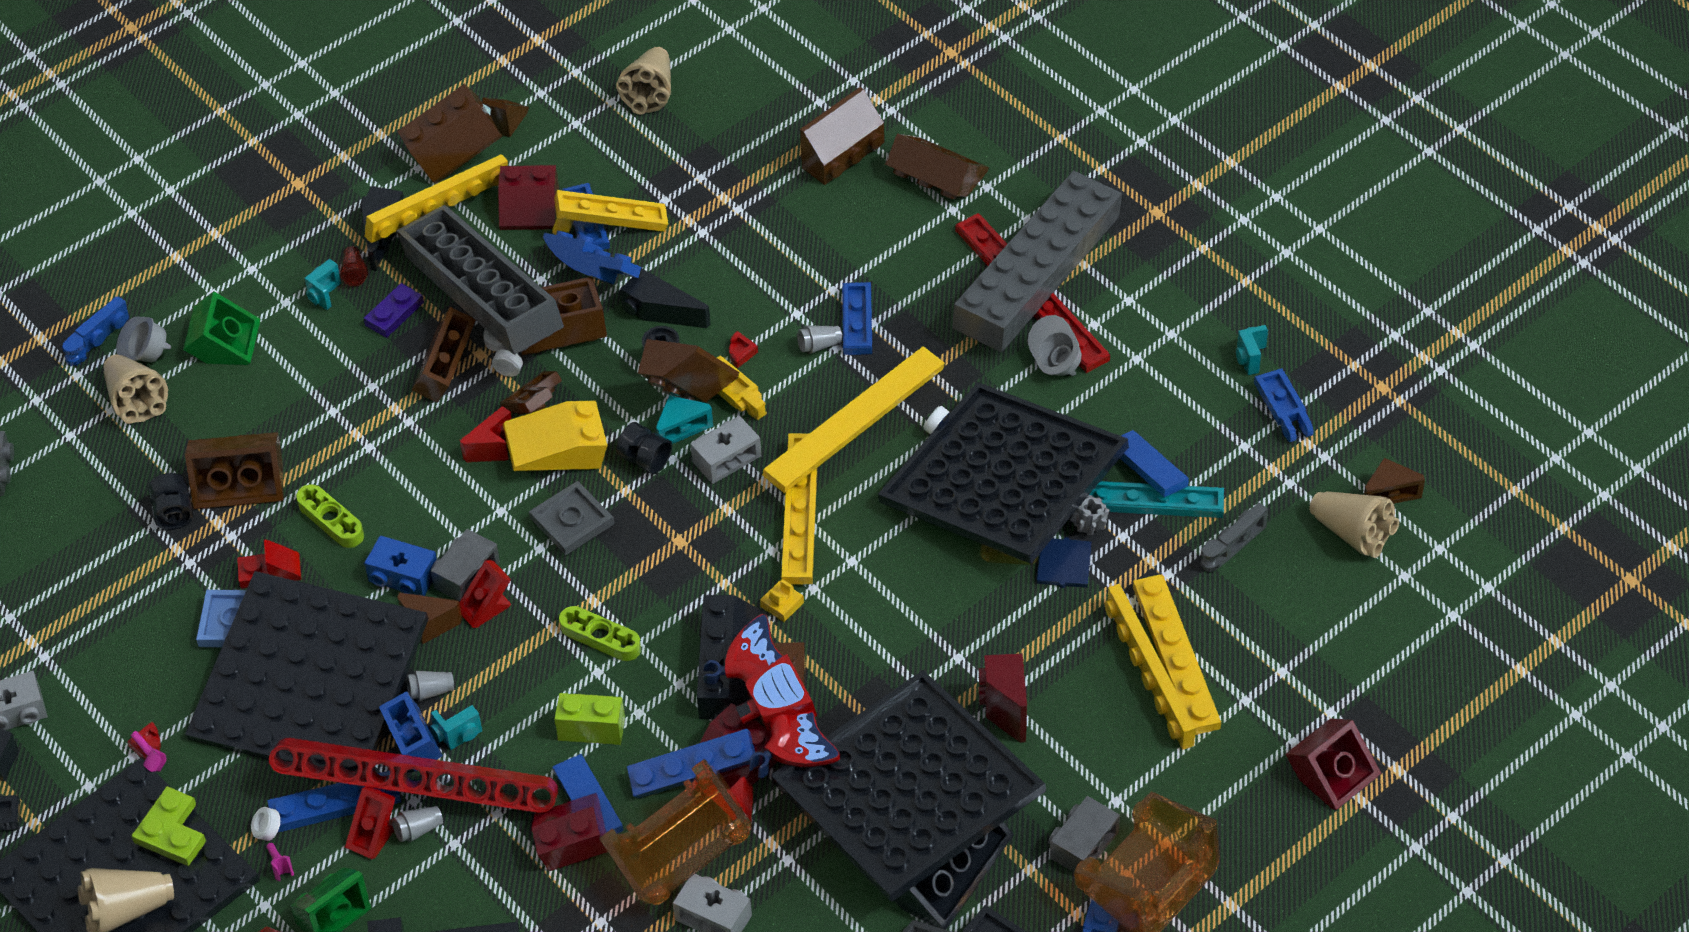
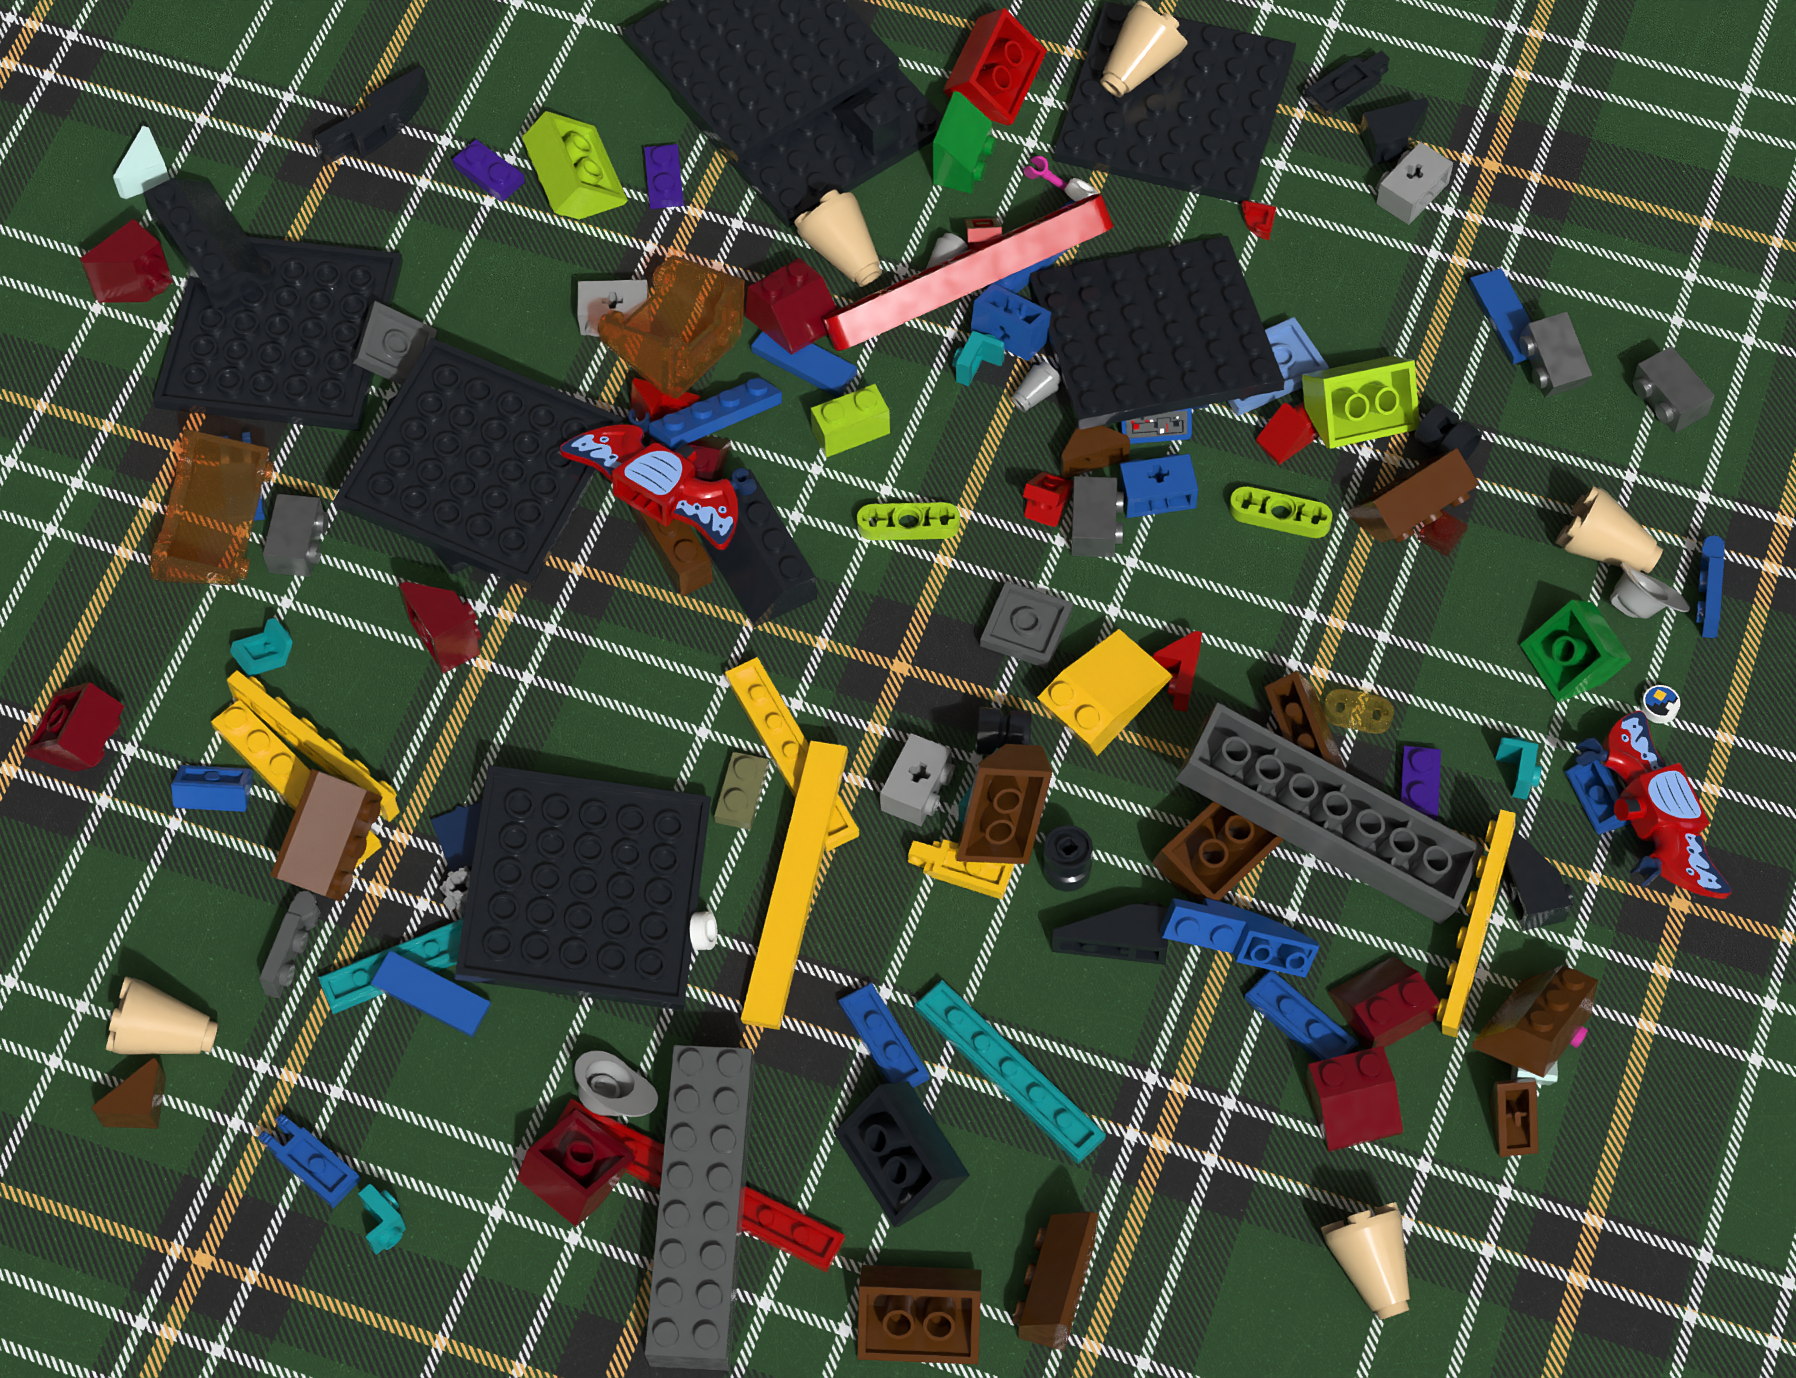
camera: 150 degrees right, 10 degrees up
(41, 578) = (1502, 310): none -> blue tile
(43, 517) = (1554, 355): none -> flat silver brick
(155, 758) = (1244, 200): dark pink hand -> none
(163, 828) = (1161, 132): lime plate -> none
(198, 286) = (1660, 704): none -> tile
(205, 551) = (1362, 400): none -> lime slope
(263, 218) = (1659, 807): none -> torso
(287, 255) = (1597, 793): none -> blue slope
(353, 269) = (1508, 799): clear red cone -> none
(390, 370) = (1358, 711): none -> clear yellow beam
(487, 875) = (841, 236): none -> tan cone
(533, 394) = (1174, 724): reddish brown plate -> none
(589, 163) = (1354, 1098): none -> dark red slope
(608, 211) = (1264, 1017): yellow piece -> none
(741, 349) = (991, 929): red tile -> none
(782, 600) = (745, 643): yellow tile -> none
(788, 266) = (1010, 1072): none -> teal tile
(818, 337) = (907, 979): light grey cone -> none
(850, 505) = (741, 790): none -> olive plate
(890, 245) = (901, 1152): none -> black slope
(1106, 318) = (574, 1167): none -> dark red slope
(1154, 756) = (264, 650): none -> teal bracket
(1171, 571) = (327, 836): none -> slope
(1240, 680) = (212, 788): none -> blue slope

